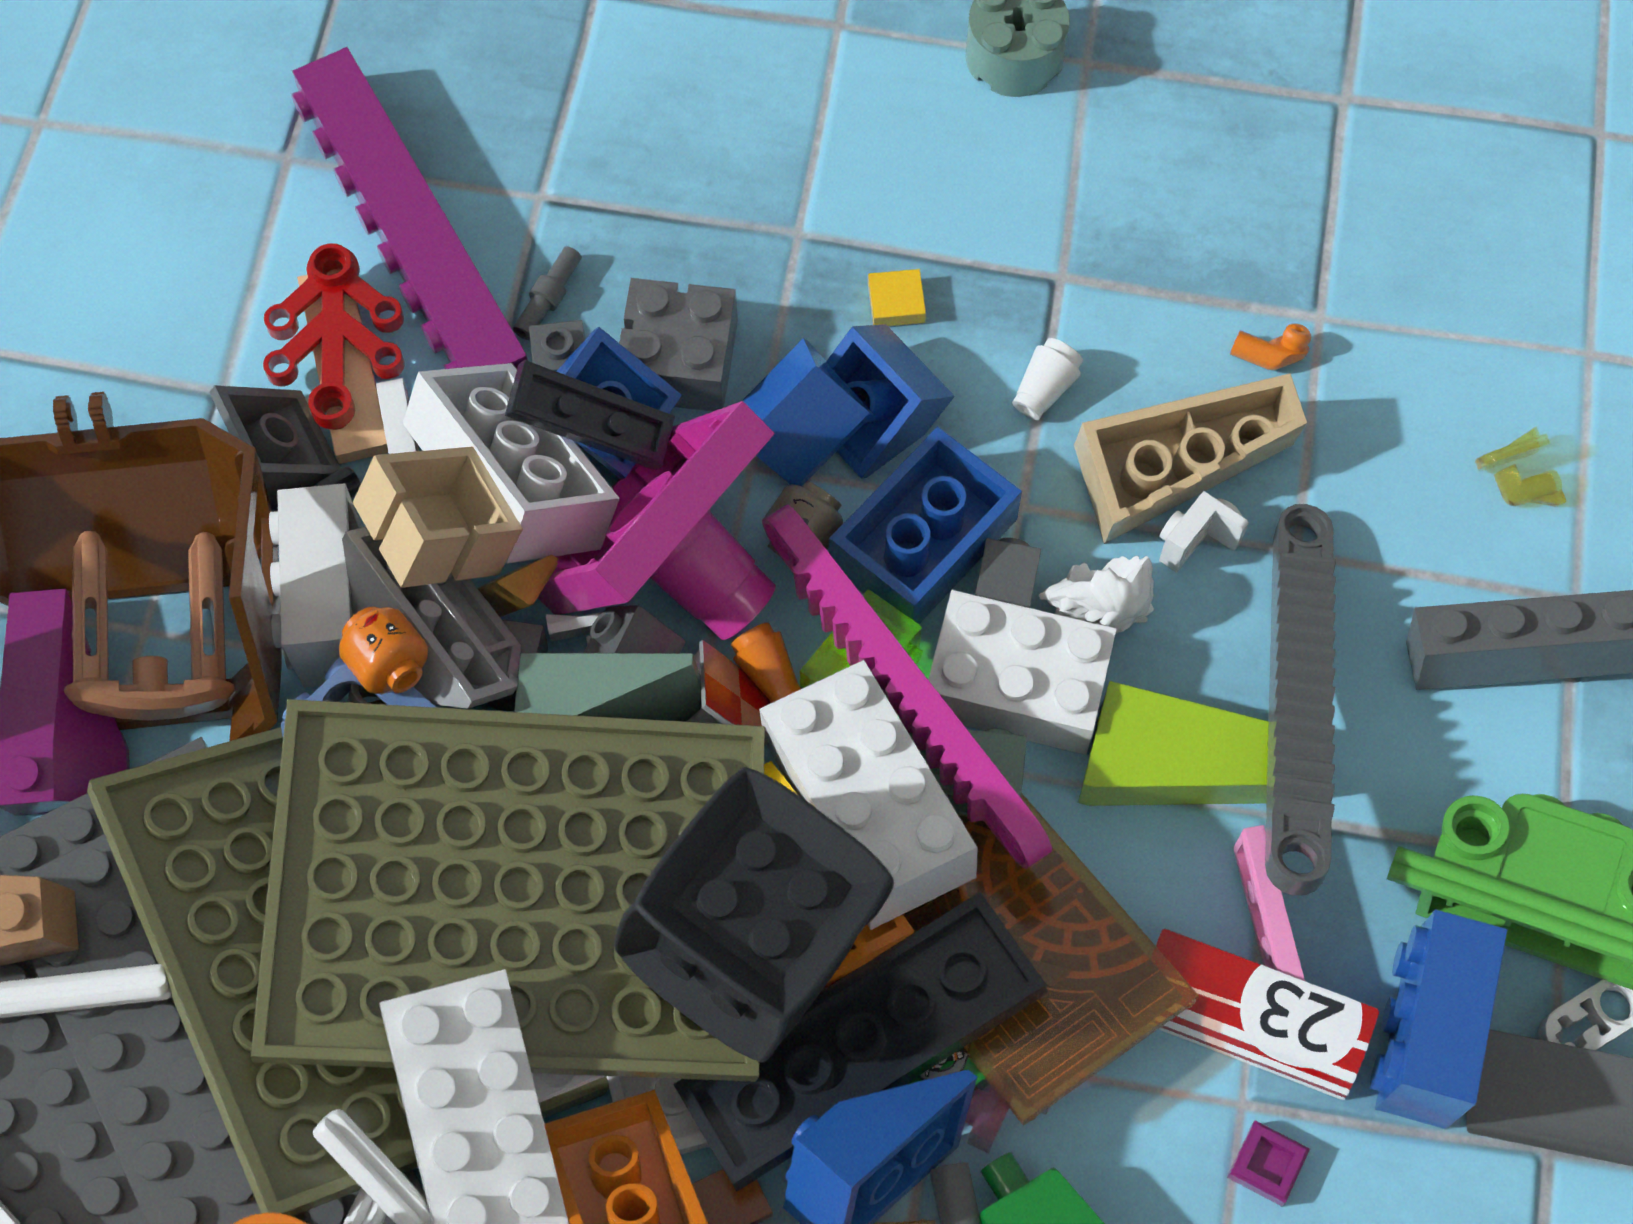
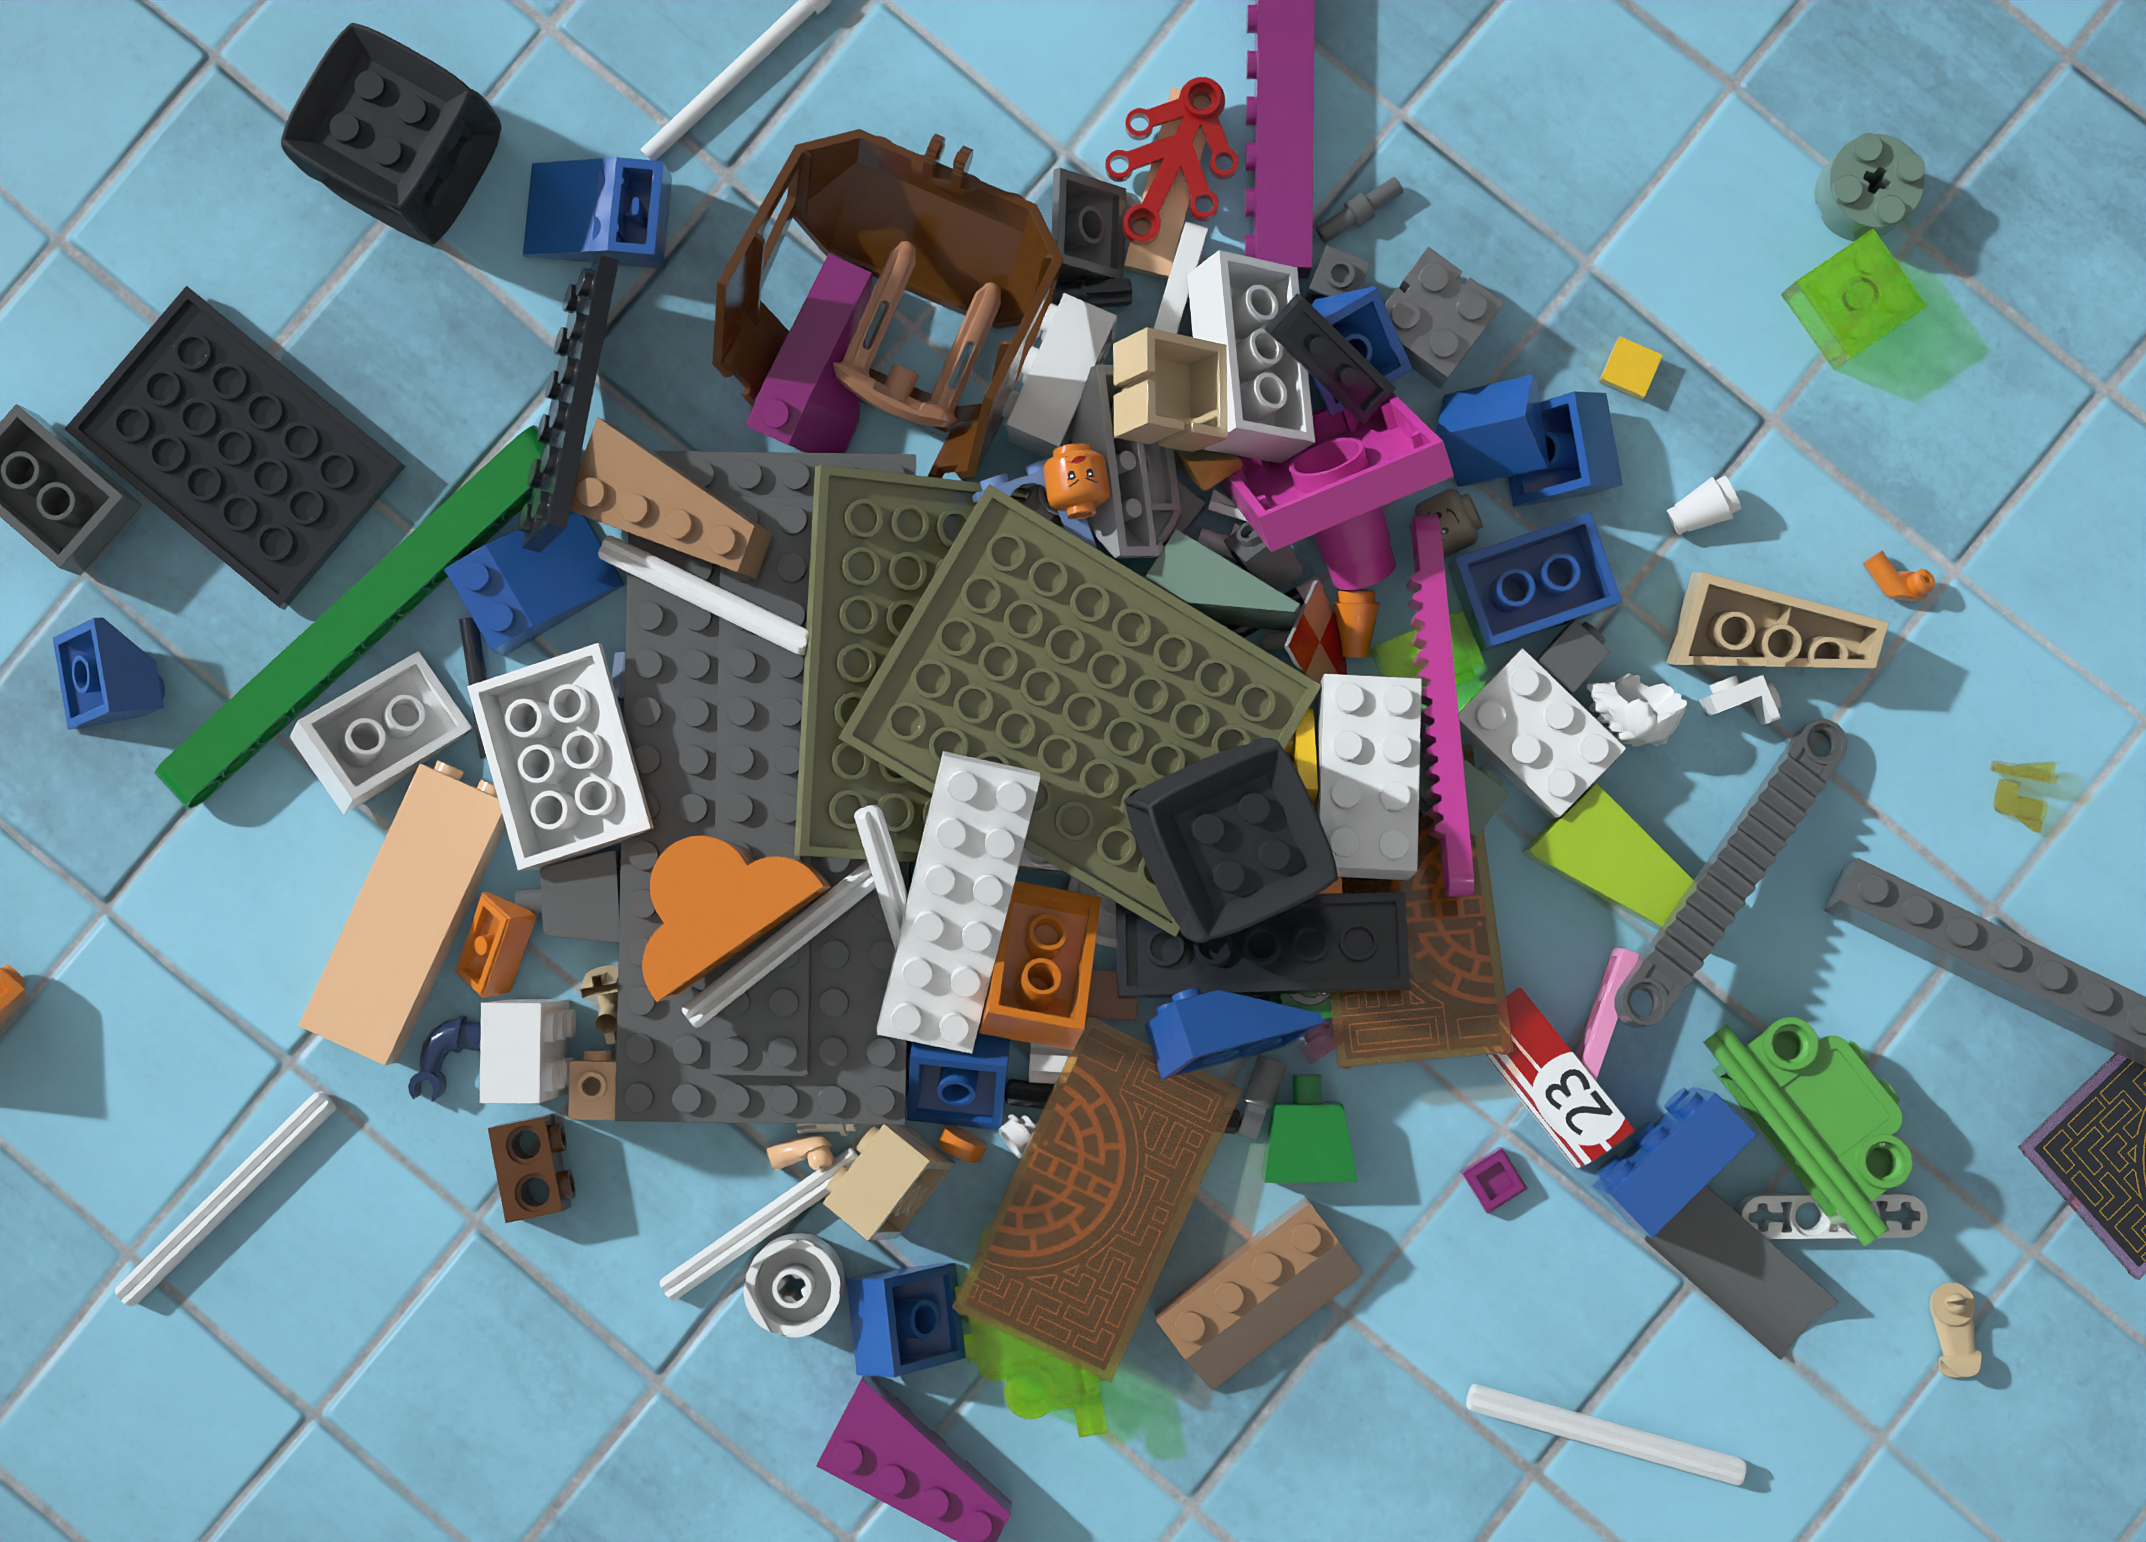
camera: 30 degrees right, 20 degrees up
(1065, 132) = (1853, 299): none -> clear neon green brick

